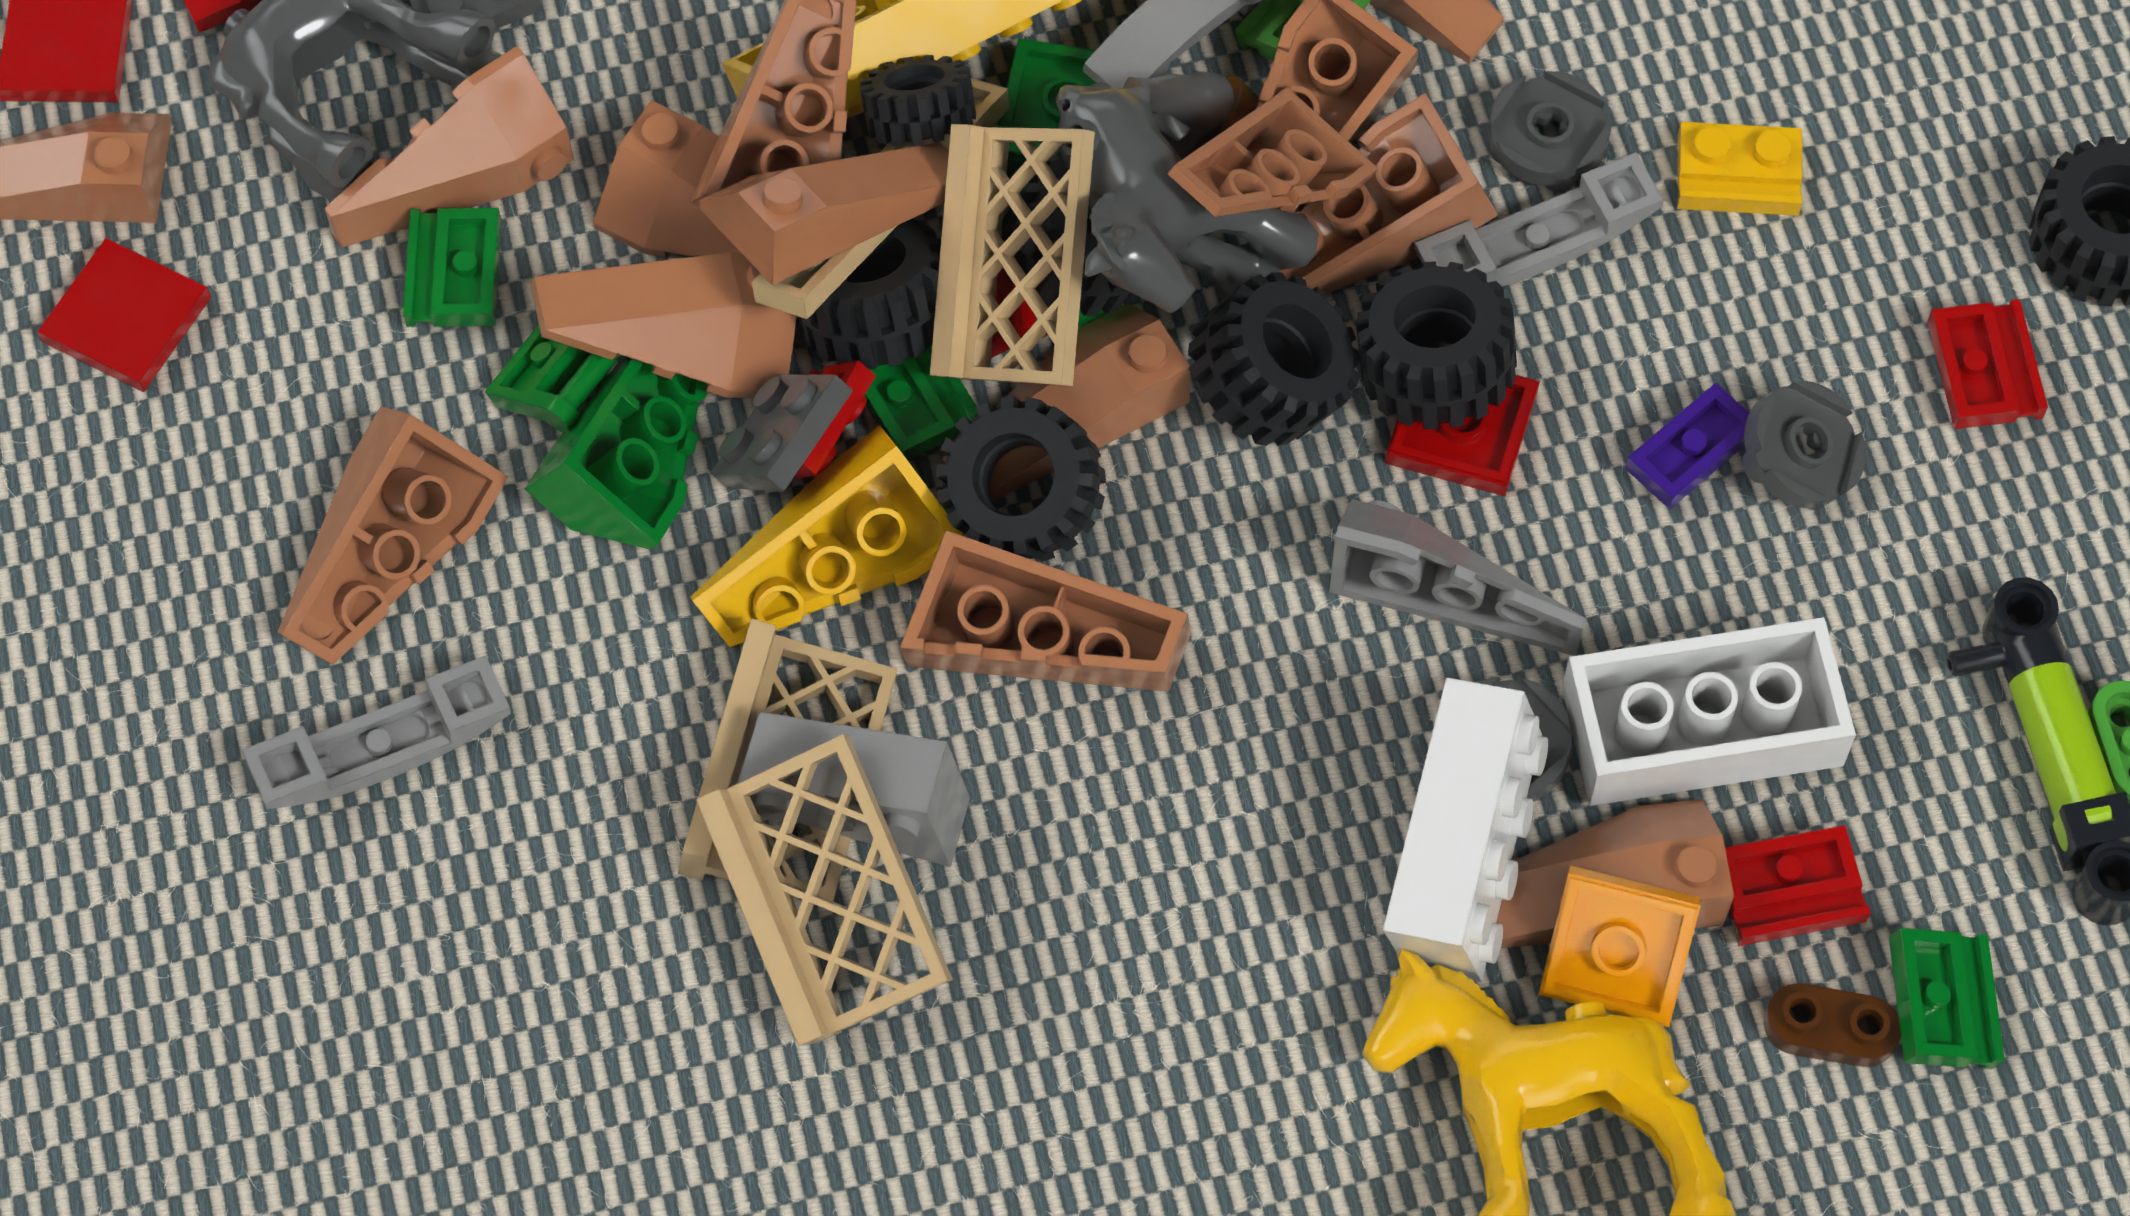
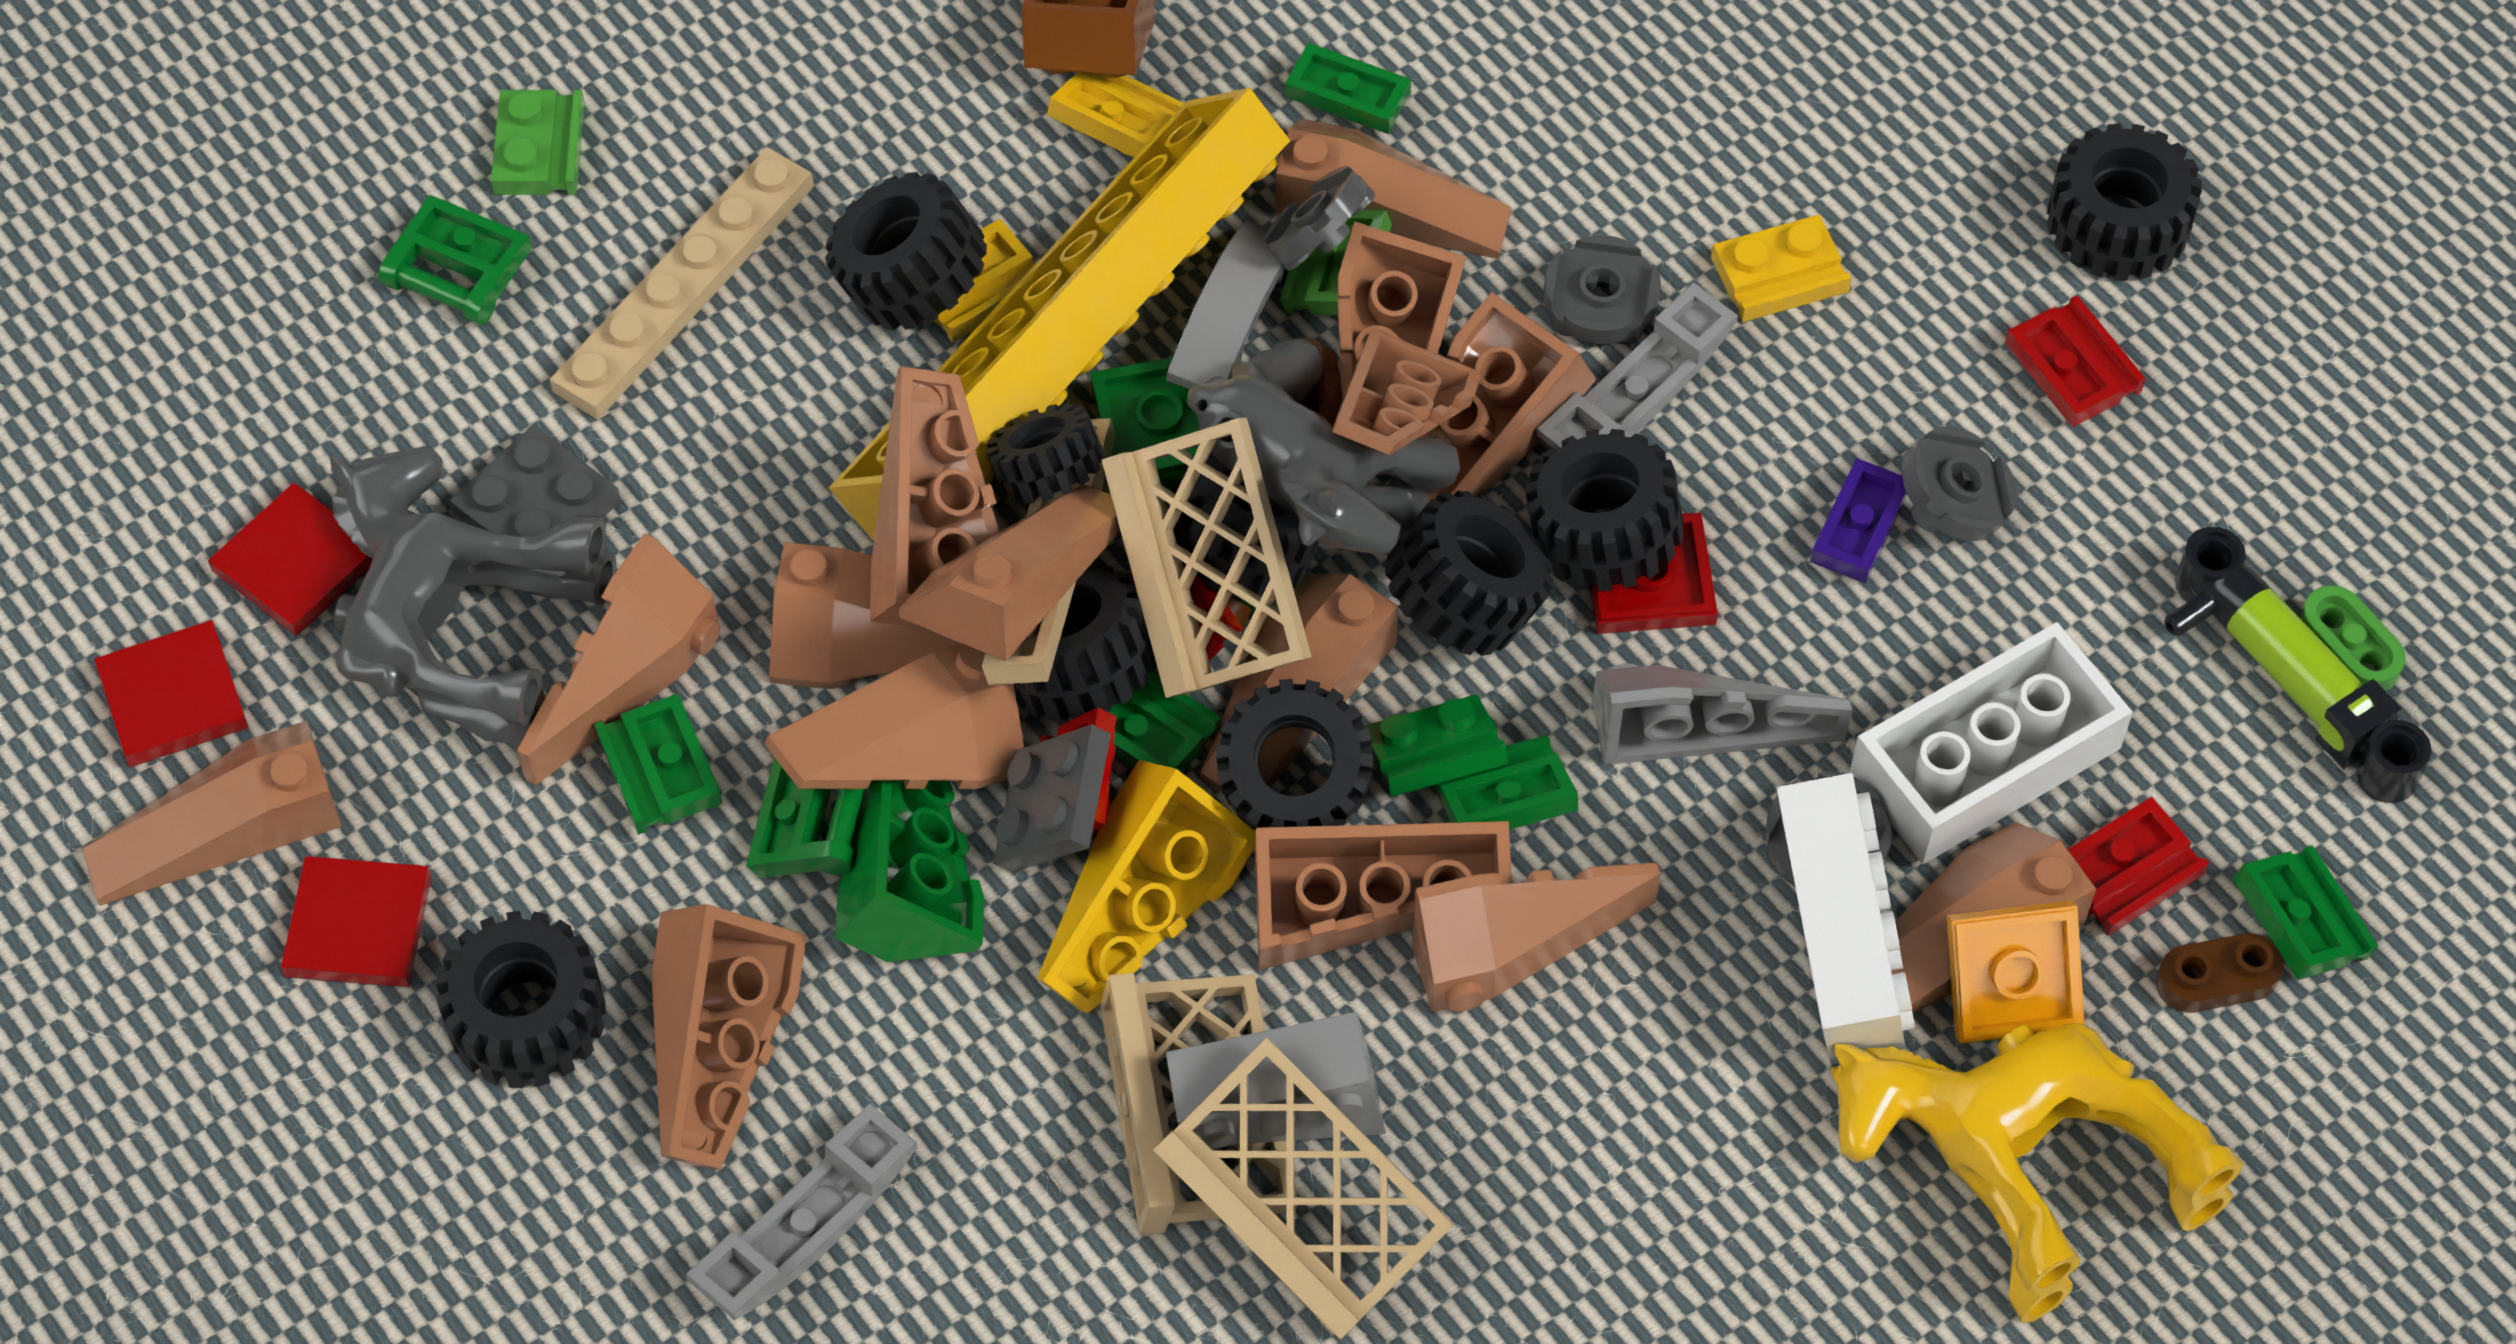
camera: 25 degrees left, 5 degrees down
(210, 399) = (512, 955): none -> black tyre
(1128, 721) = (1488, 936): none -> nougat wedge
(1169, 513) = (1435, 745): none -> green plate
(1219, 579) = (1521, 792): none -> green plate

